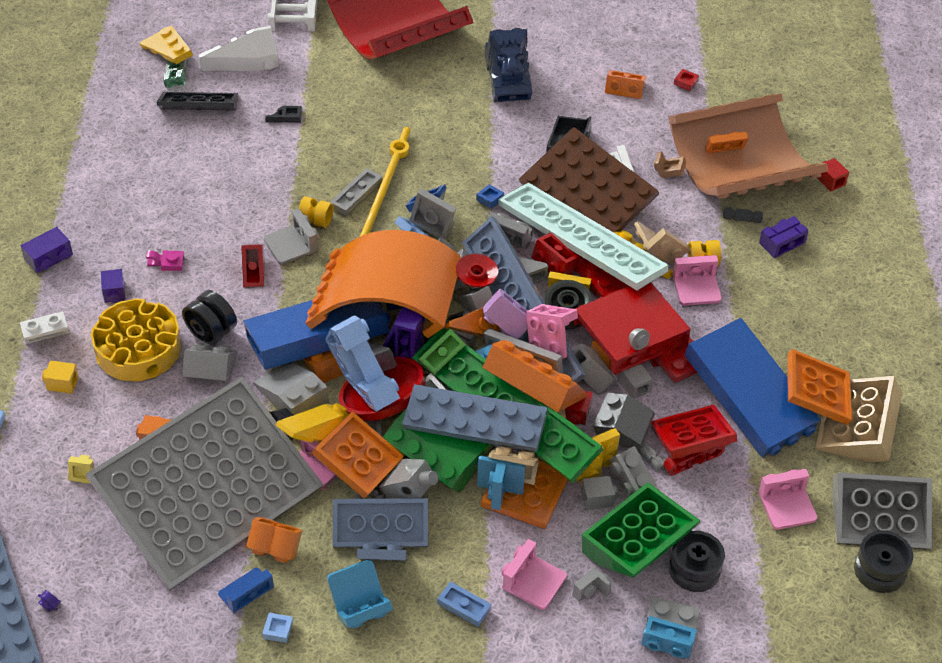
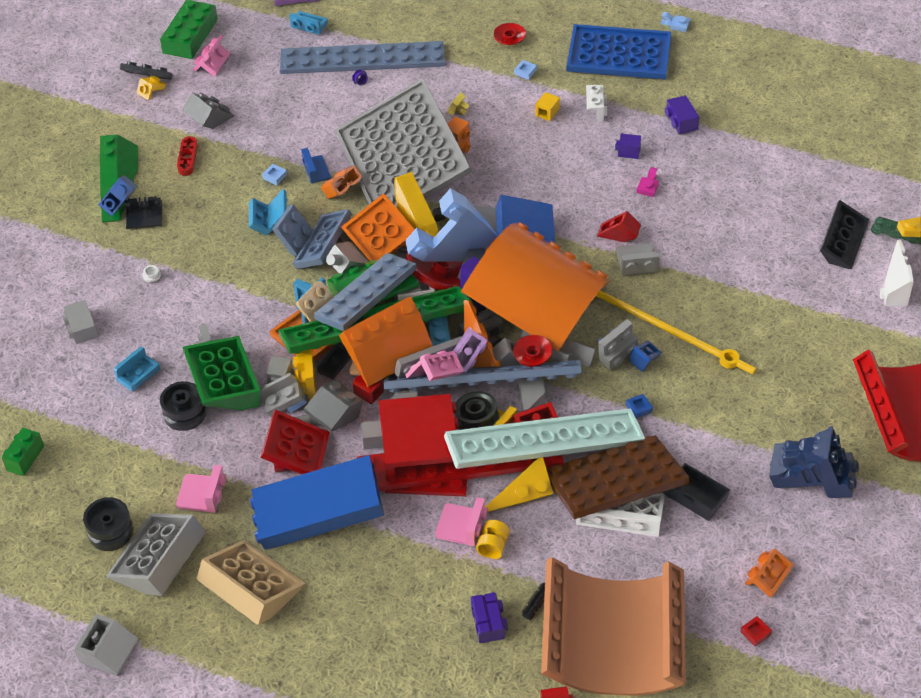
camera: 115 degrees right, 0 degrees up
(136, 340) = (562, 146): yellow brick -> none
(208, 362) = (524, 182): light grey slope -> none
(209, 317) = (562, 184): black wheel -> none
(286, 114) = (809, 294): black tile -> none
(317, 212) = (663, 278): yellow wheel -> none
(356, 191) = (682, 314): light grey plate -> none
(441, 352) = (446, 295): bright green slope -> none
(464, 604) = (234, 270): medium blue plate -> none
(517, 232) = (580, 394): light grey plate -> none
(532, 577) = (232, 312): bright pink bracket -> none
(639, 338) = (386, 414): light grey plate -> none
(662, 244) = (520, 502): tan bracket -> none
(669, 167) = (626, 560): medium nougat bracket -> none
(674, 612) = (155, 384): light grey plate -> none
(726, 142) = (636, 626): orange plate -> none
(819, 387) = (286, 546): orange plate -> none

